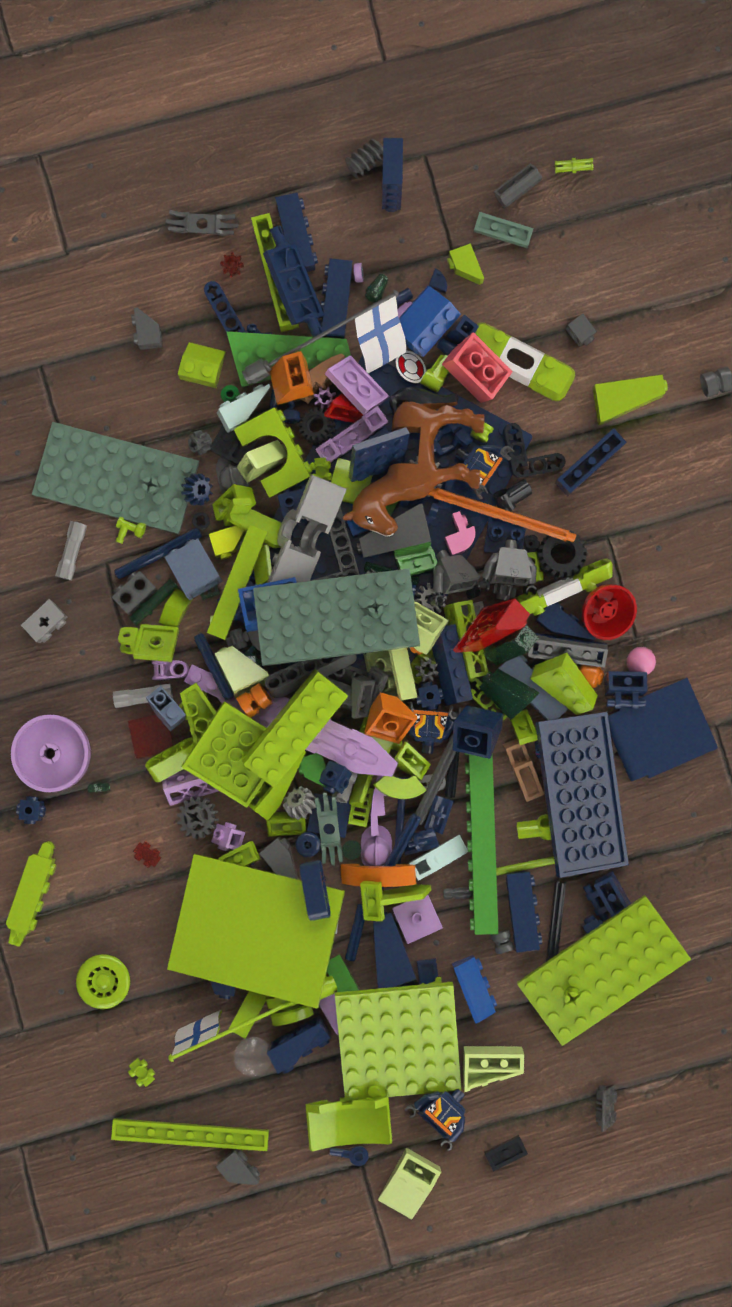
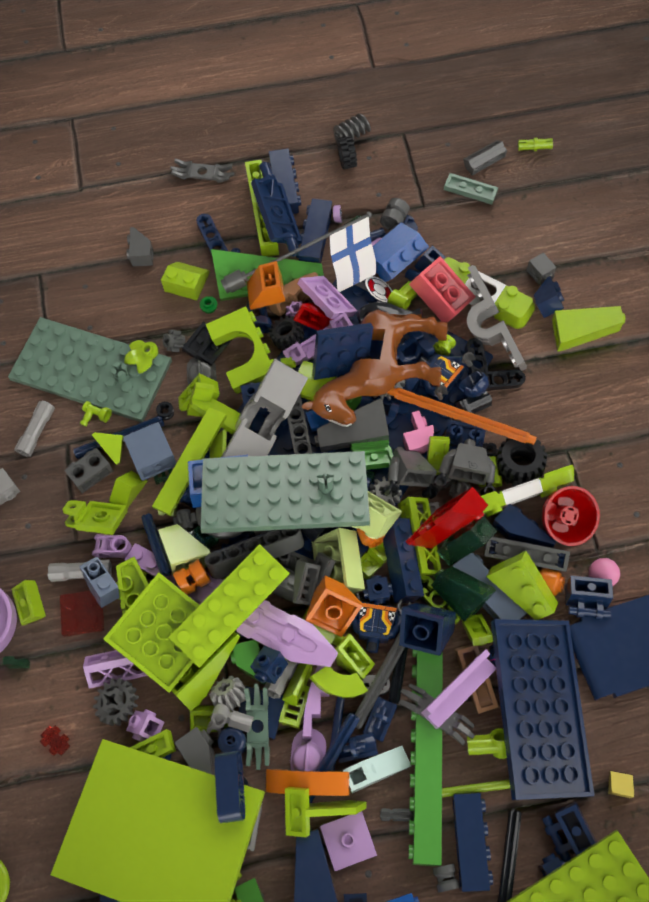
camera: 10 degrees right, 20 degrees down
(97, 729) = (28, 602): none -> lime slope
(147, 607) = (101, 484): clear green pin -> none
(154, 565) = (111, 444): none -> lime slope
(166, 465) = (140, 356): none -> lime plate
(170, 760) = (92, 640): lime beam -> none
(196, 489) = (158, 375): dark blue gear -> none
(225, 541) = (184, 427): neon yellow slope -> none
(232, 270) = (224, 202): clear red gear -> none
(240, 410) = (207, 313): light aqua slope -> none
(262, 460) = (227, 355): yellowish green slope -> none
(309, 826) = (235, 719): none -> light grey bar
(351, 849) = (280, 753): clear green tile -> none
(355, 934) = (275, 855): dark blue axle -> none
(363, 193) = (347, 152): none -> black tyre
(392, 174) = (372, 131): dark blue arch -> none
(420, 273) = (395, 213): none -> dark grey wheel
(421, 672) = (376, 557): dark grey gear -> none
(465, 264) = (435, 212): lime slope -> none
(478, 805) = (448, 725): none -> dark grey piece
(479, 553) = (437, 449): none -> lime plate
(508, 786) = (459, 690): none -> lavender fence
(513, 478) = (474, 385): none -> dark blue hair
(524, 420) = (485, 310): none -> light grey piece
(588, 368) = (549, 297): none -> dark blue slope
(590, 462) = (550, 378): dark blue brick -> none
(651, 852) = (621, 785): none -> light yellow slope

